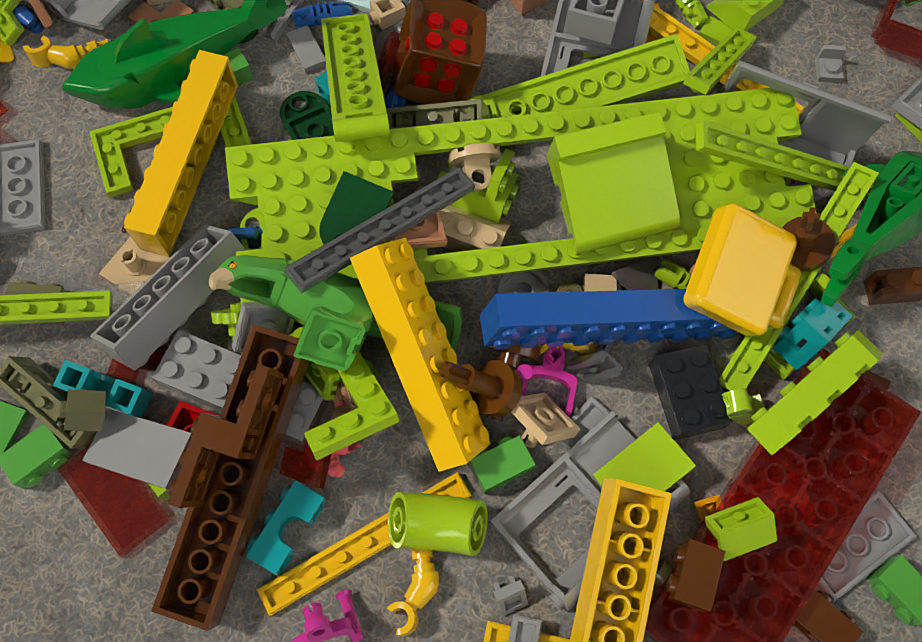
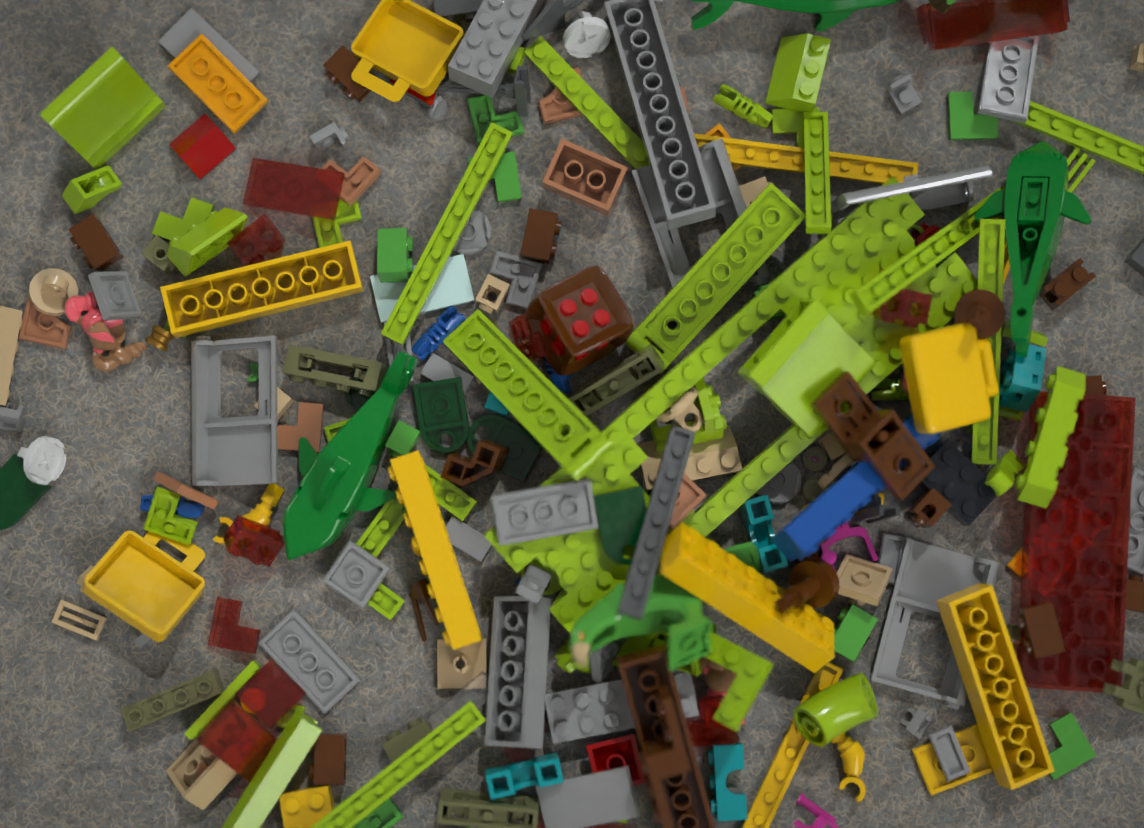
camera: 30 degrees left, 15 degrees up
(53, 58) = (255, 537): none -> clear red brick
(83, 410) = (530, 801): olive brick -> none
(109, 139) = (356, 574): none -> light grey tile
(218, 172) = (467, 539): none -> light grey tile
(239, 224) = (533, 583): none -> light grey bracket
(277, 118) = (485, 462): none -> reddish brown brick
(280, 69) = (441, 411): none -> dark green tile
(290, 157) = (544, 511): none -> light grey tile
(471, 343) = (758, 523): none -> teal arch
(639, 275) = (872, 435): none -> reddish brown bracket
(649, 394) = (927, 509): none -> reddish brown brick
(649, 461) = (959, 565): lime tile -> none
(740, 184) = (901, 310): none -> clear red brick
(743, 527) = (1053, 573): lime panel -> none
(879, 100) = (963, 122): none -> bright green tile

